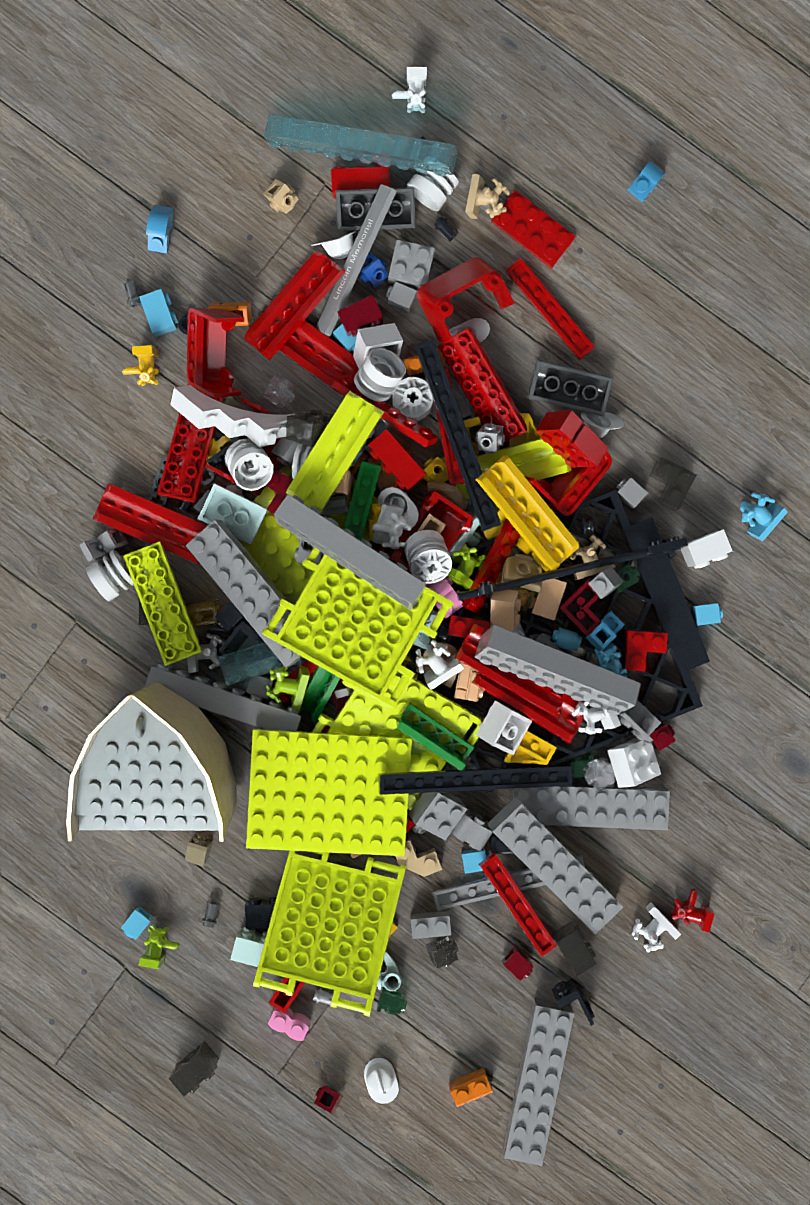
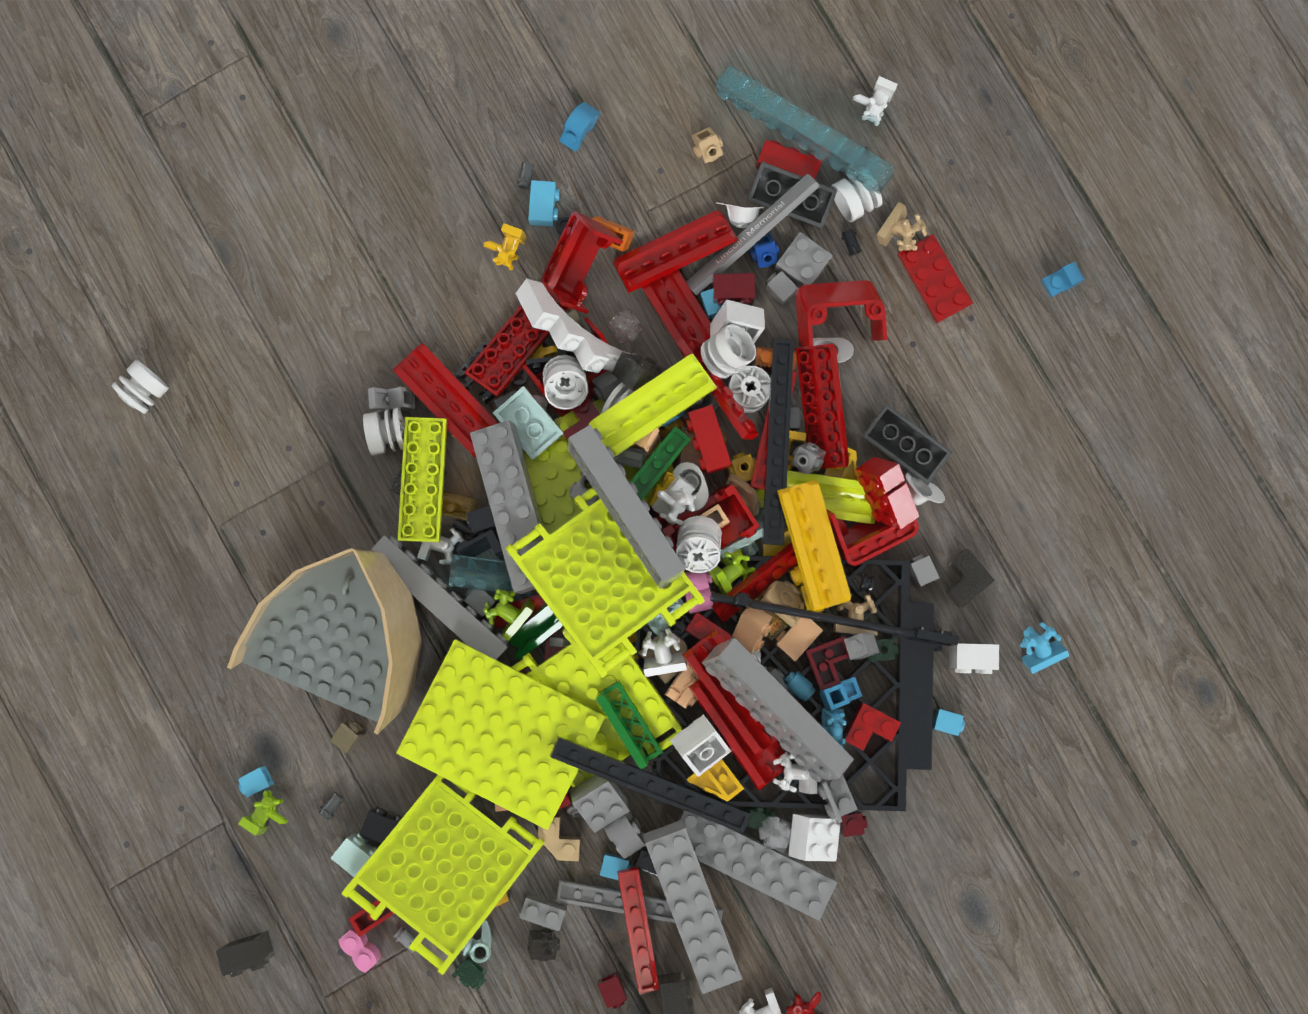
camera: 25 degrees right, 5 degrees down
(549, 309) = (918, 361): red plate -> none

